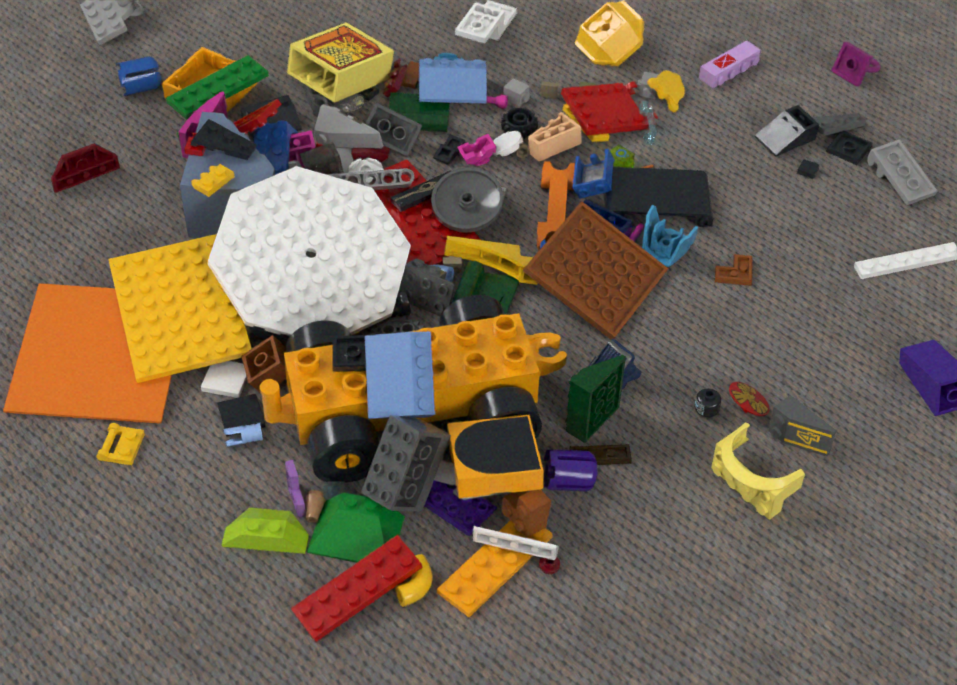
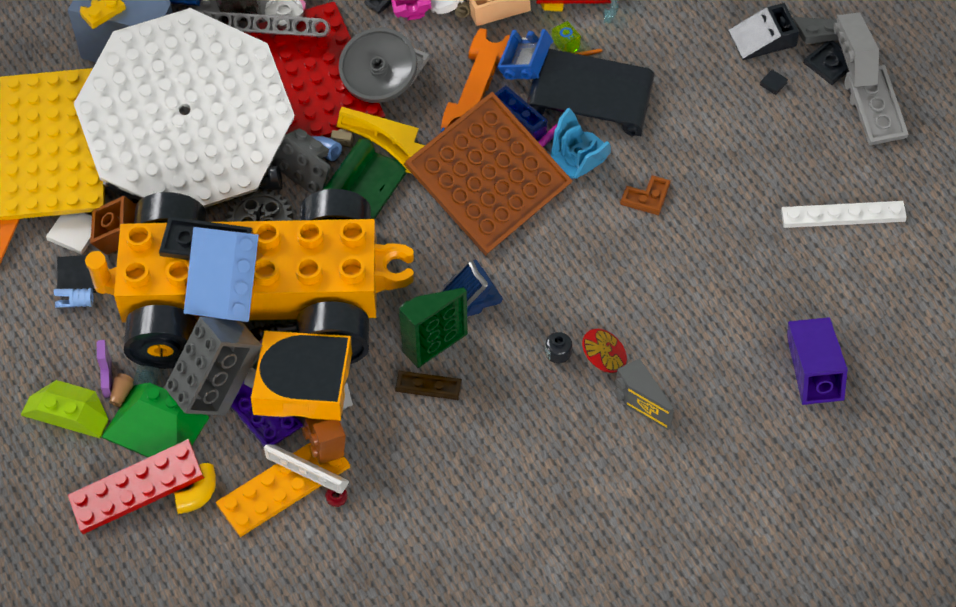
camera: 15 degrees right, 10 degrees up
(415, 194) = (328, 48): black tile -> none
(569, 470) = (387, 399): dark purple cylinder -> none
(762, 492) = (563, 444): light yellow piece -> none
(876, 128) = (858, 49): none -> light grey wedge

